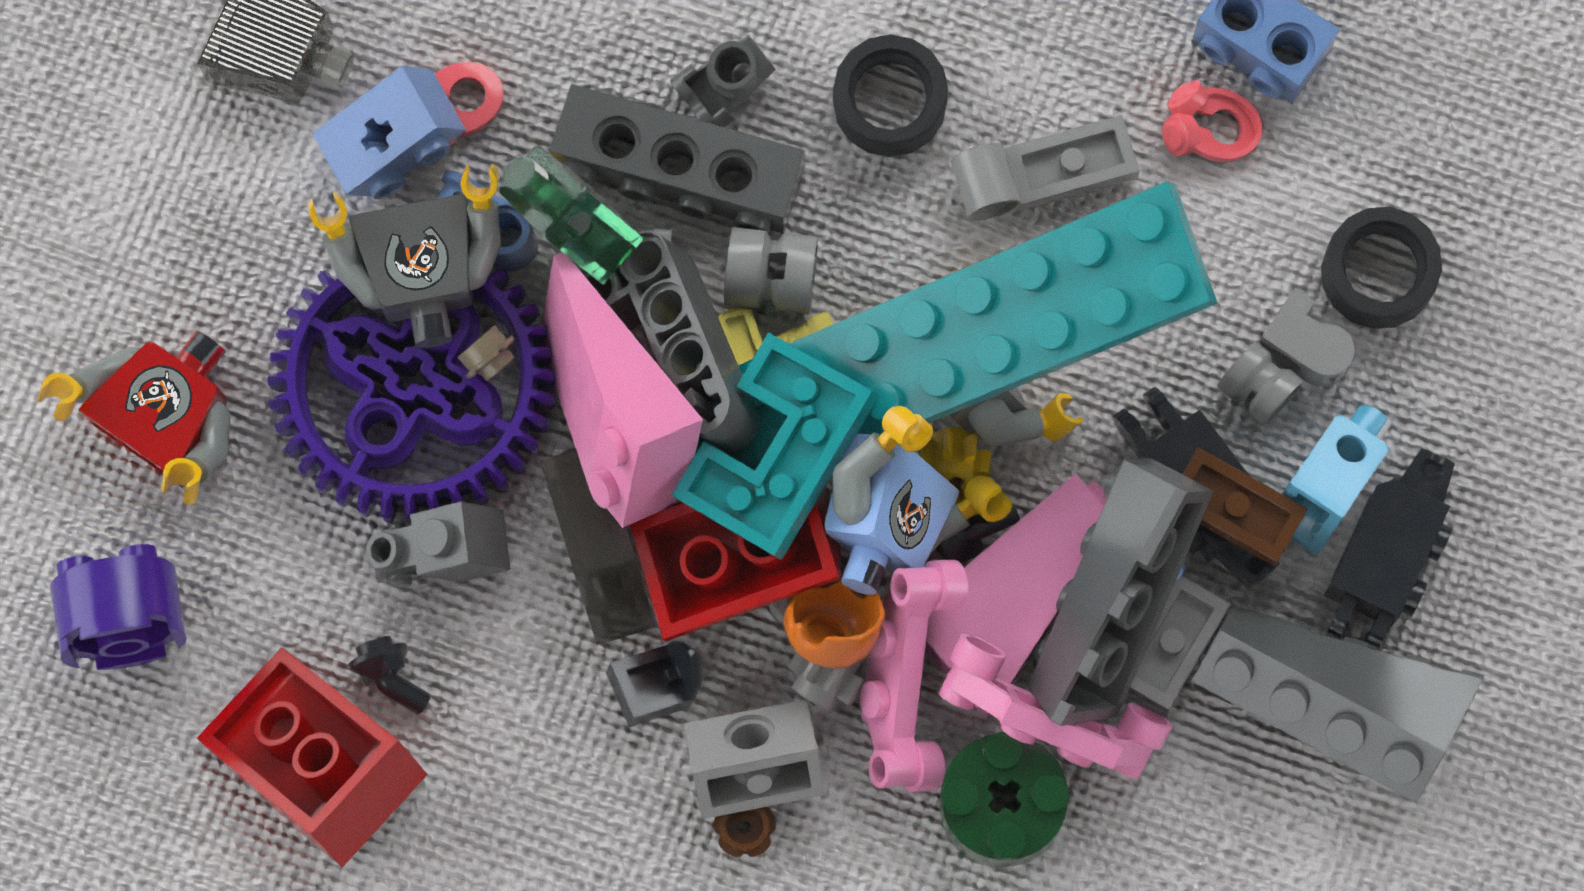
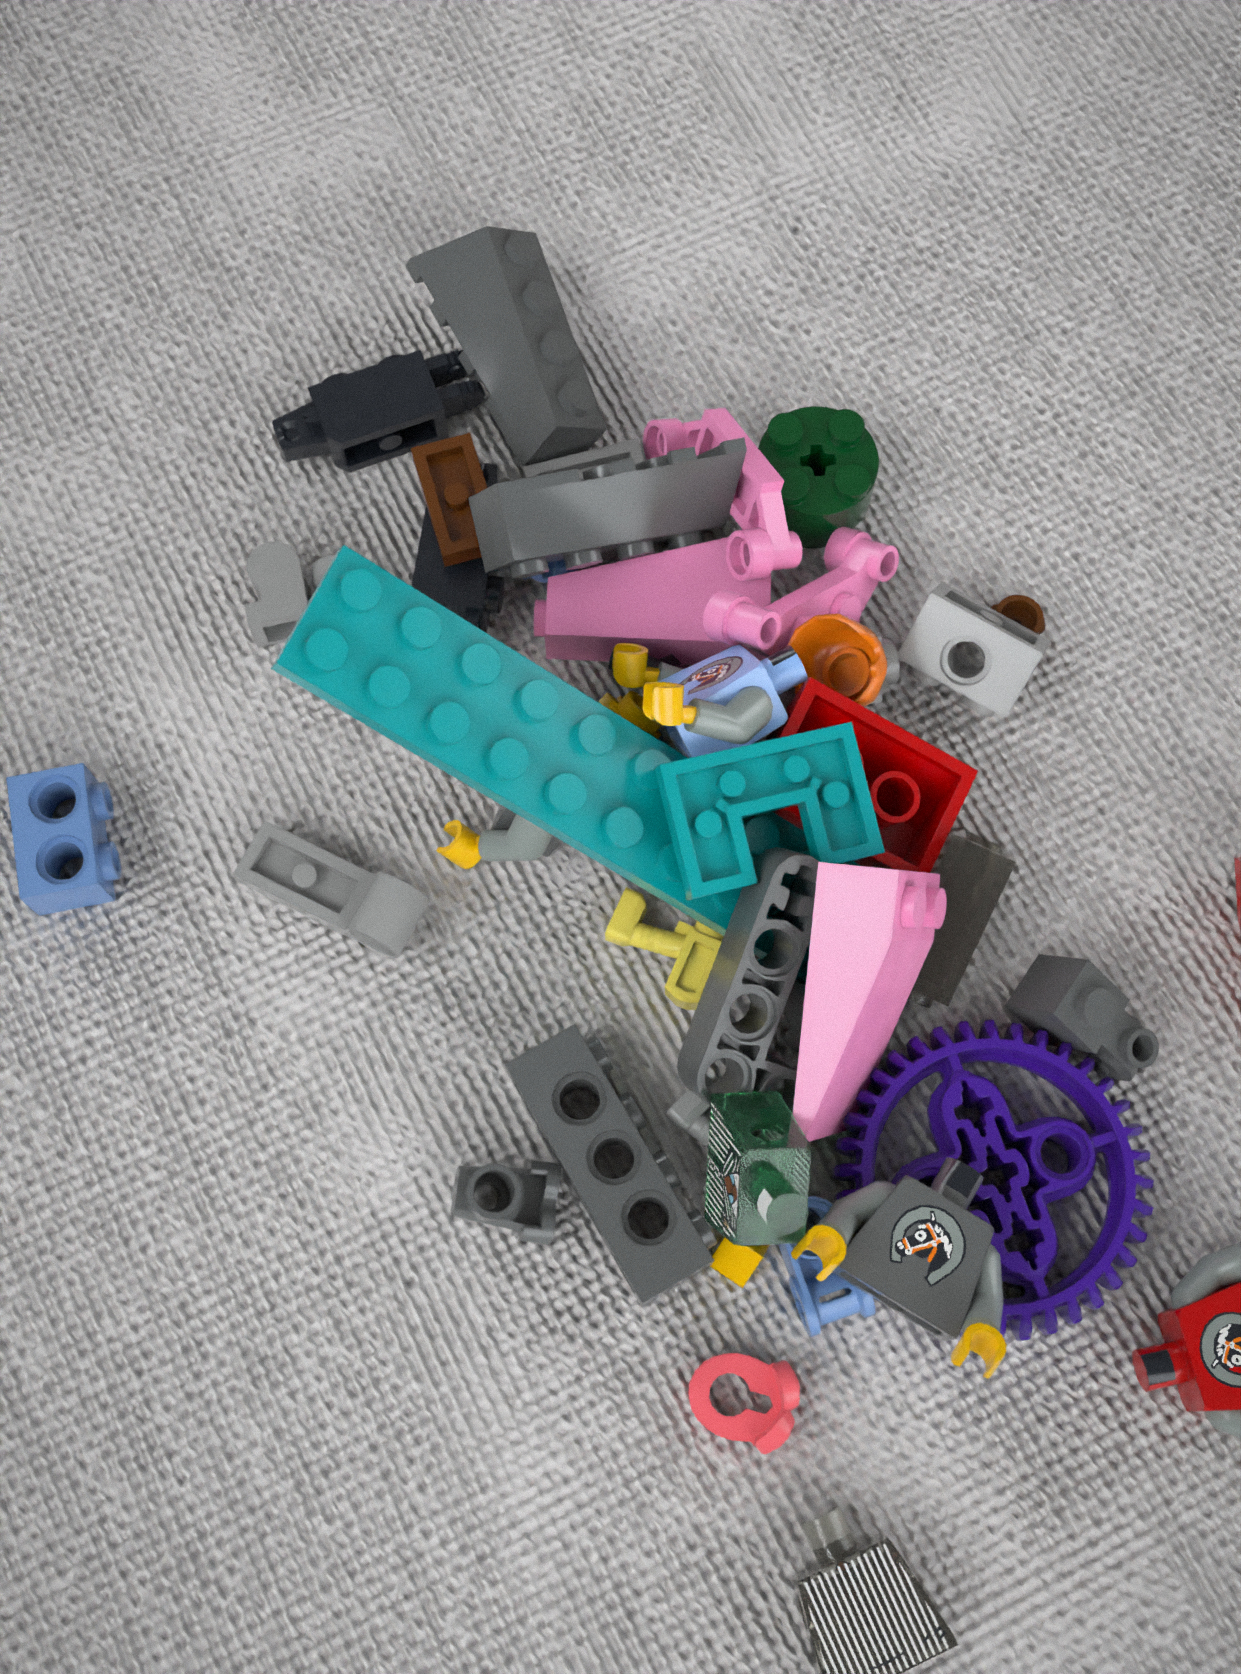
camera: 140 degrees left, 5 degrees down
(378, 665) = (1203, 972): black plate -> none
(389, 133) = (837, 1408): medium blue brick -> none
(487, 354) = (925, 1121): dark tan plate -> none
(656, 681) = (1005, 772): black plate -> none
(749, 268) = (635, 1017): light grey wheel -> none
(898, 51) = (360, 1019): black tyre -> none
(1184, 135) = (170, 845): coral piece -> none
(1337, 473) = (361, 478): medium azure torso -> none
(1395, 224) = (152, 561): black tyre -> none

